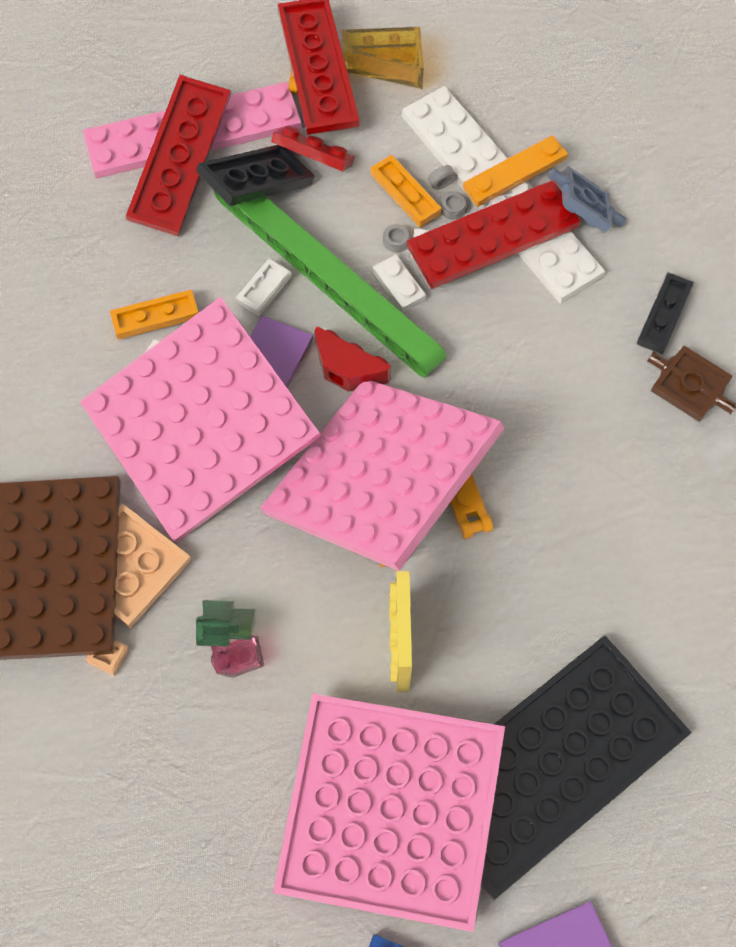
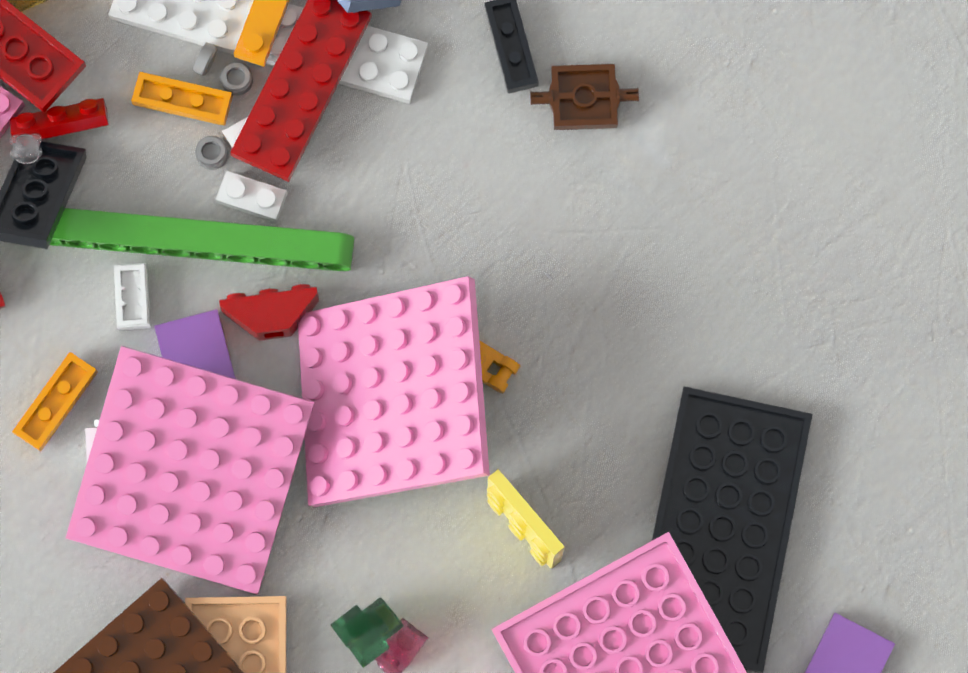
camera: 40 degrees left, 10 degrees up
(275, 145) = (25, 148): none -> clear plate

